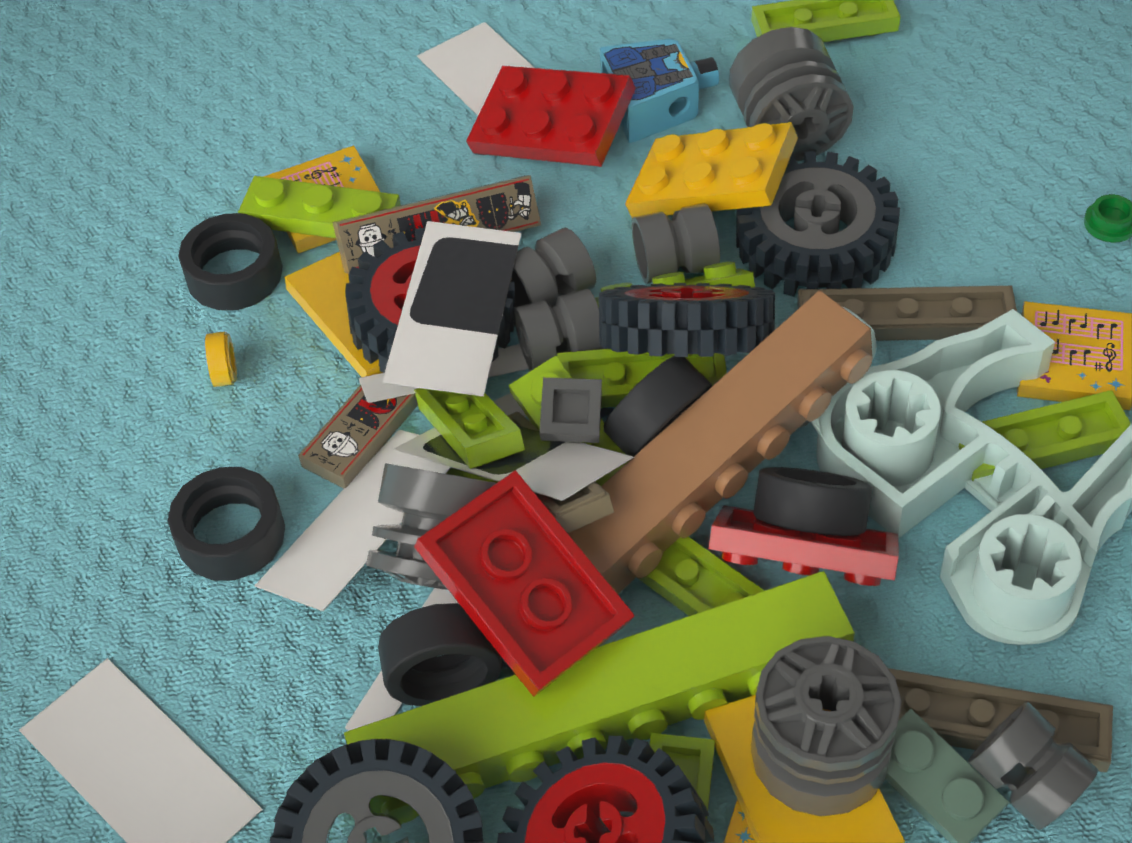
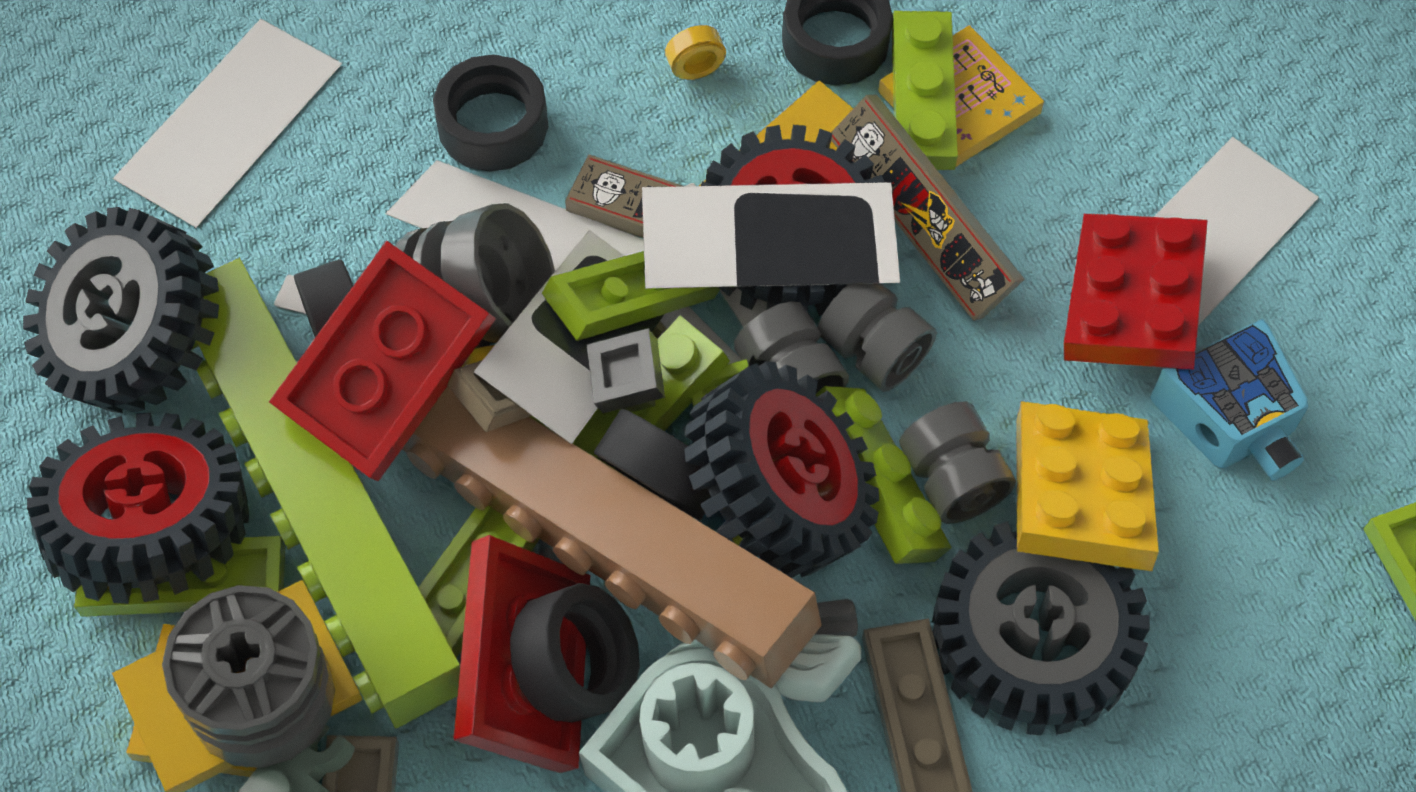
camera: 75 degrees right, 10 degrees up
(792, 80) = (1241, 556): dark grey wheel -> none

